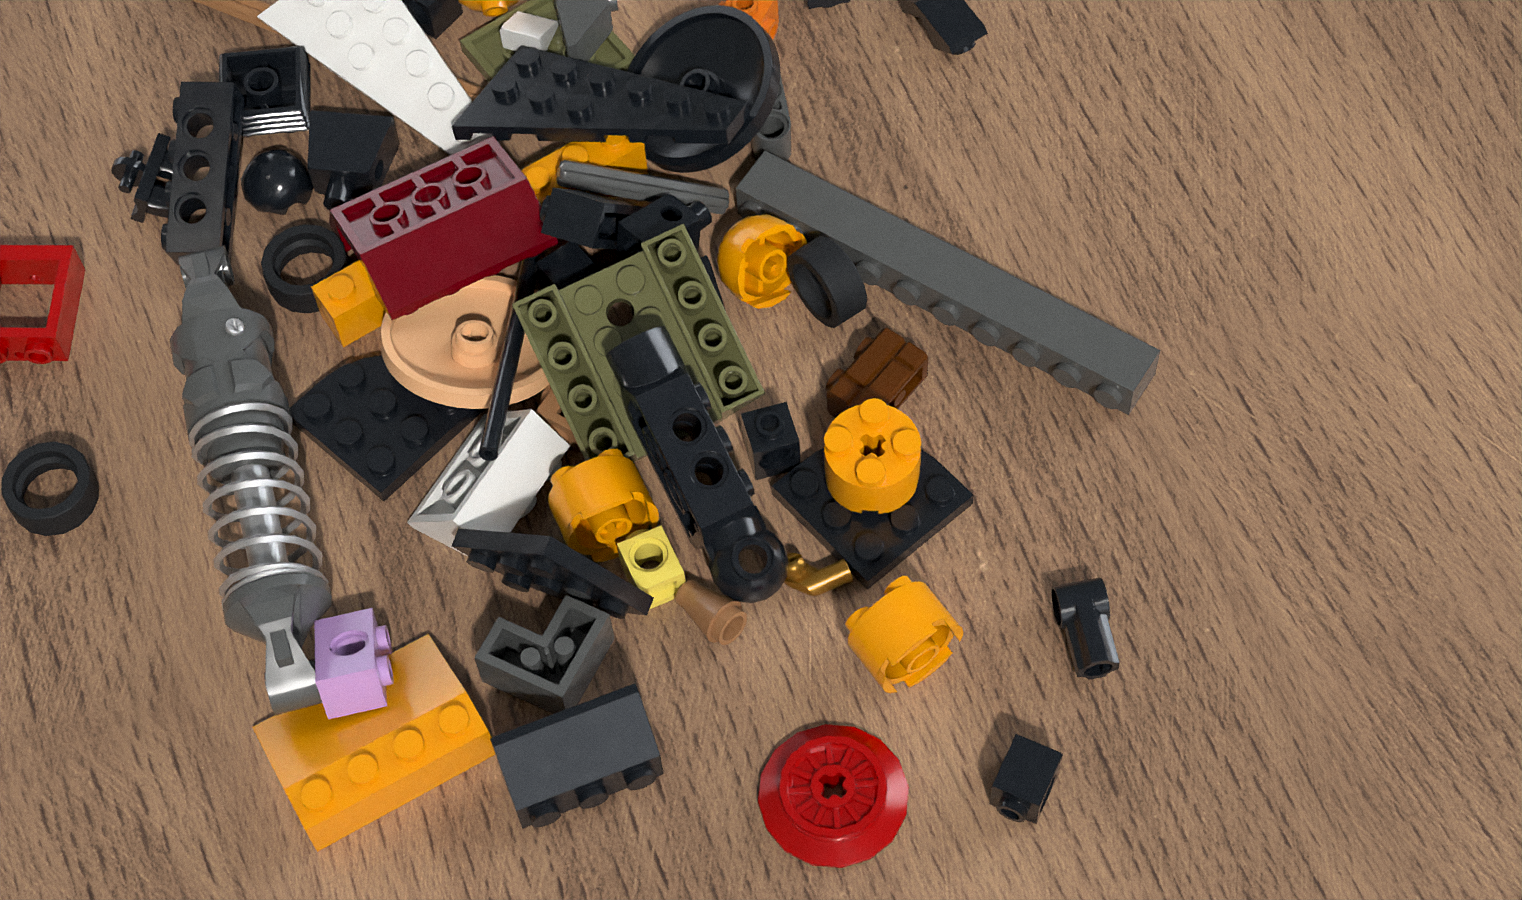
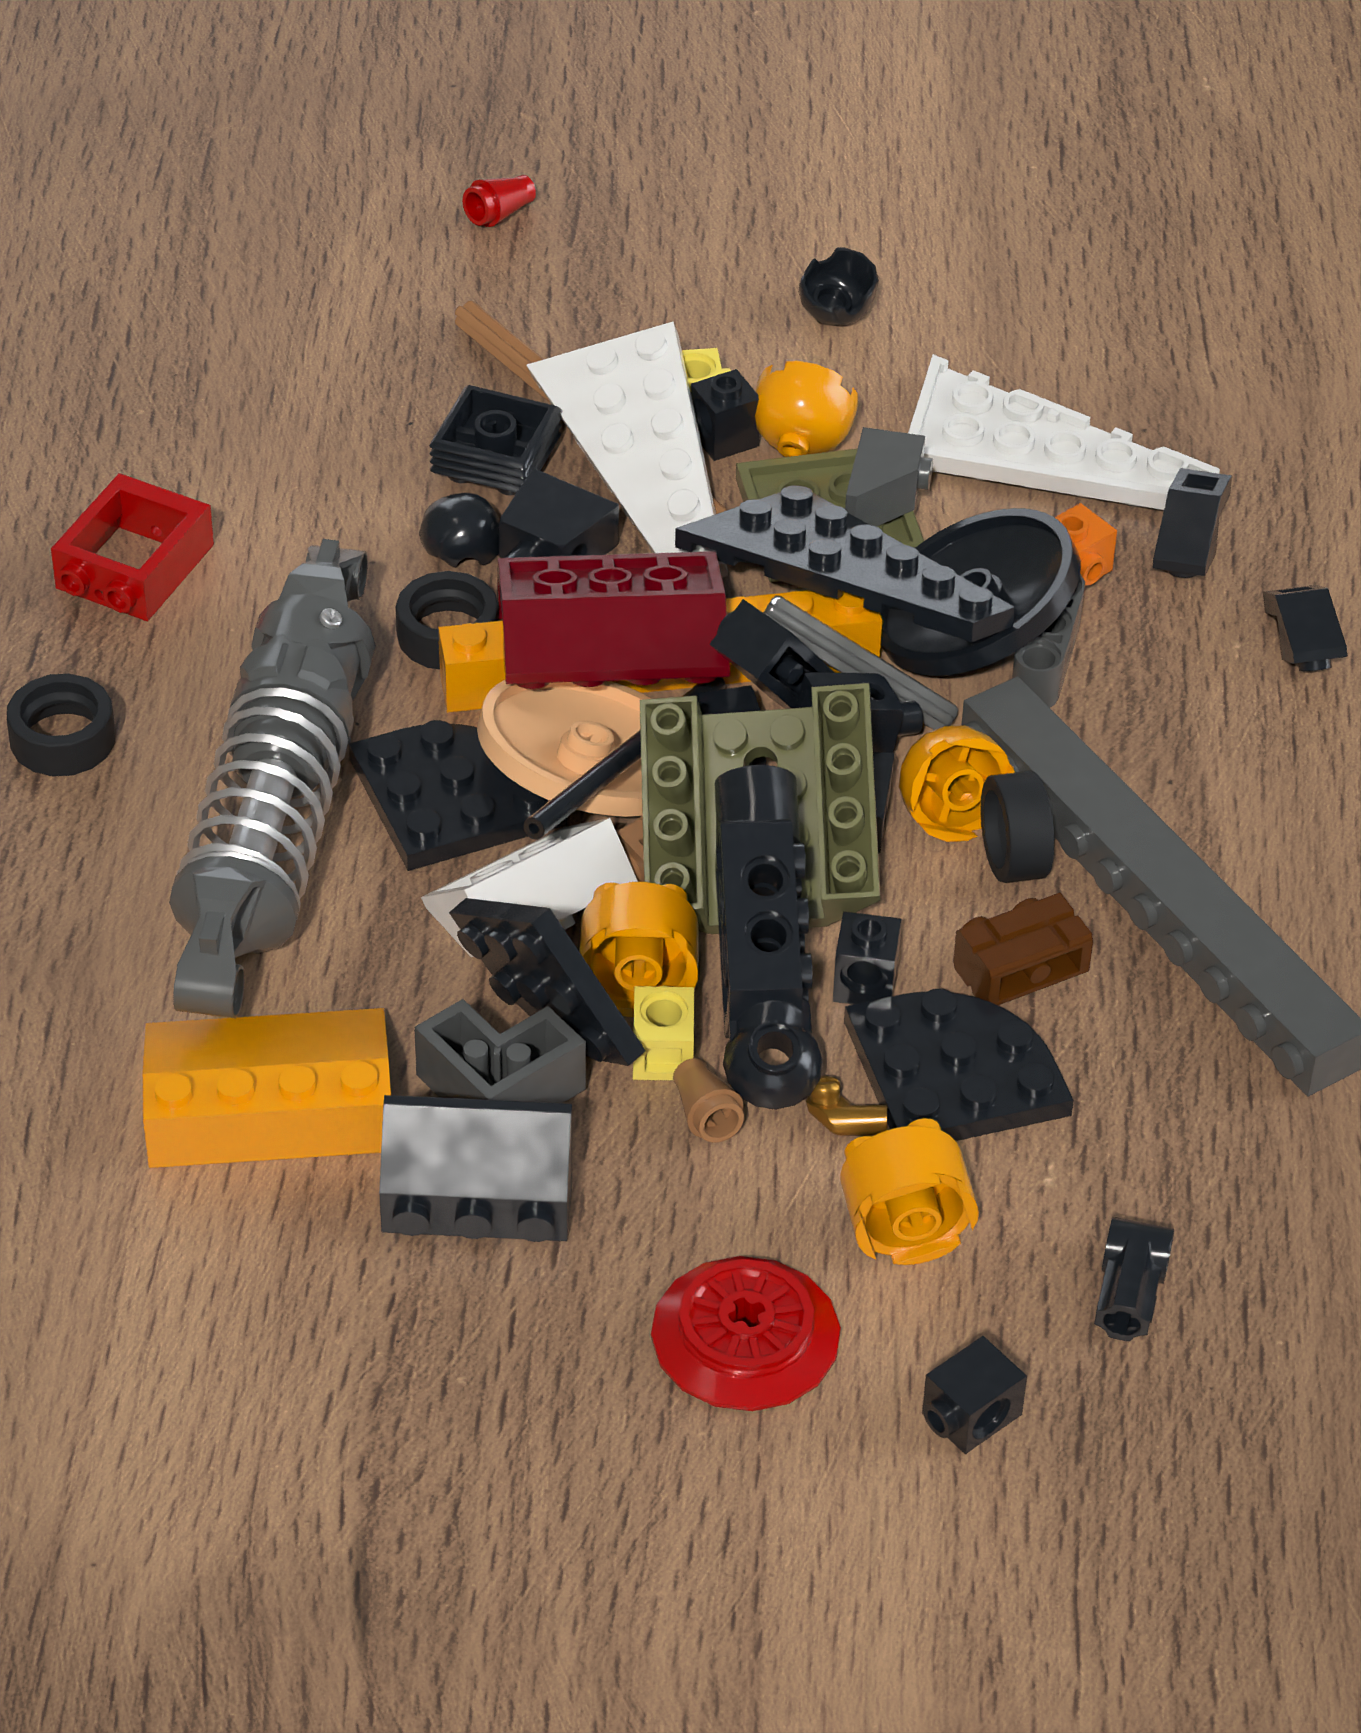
camera: 20 degrees right, 15 degrees down
(133, 172) = (324, 473): black hips -> none
(198, 107) = (433, 432): black brick -> none
(352, 663) = (282, 991): lavender brick -> none
(527, 31) = (815, 474): white slope -> none
(872, 457) = (968, 1006): light orange brick -> none

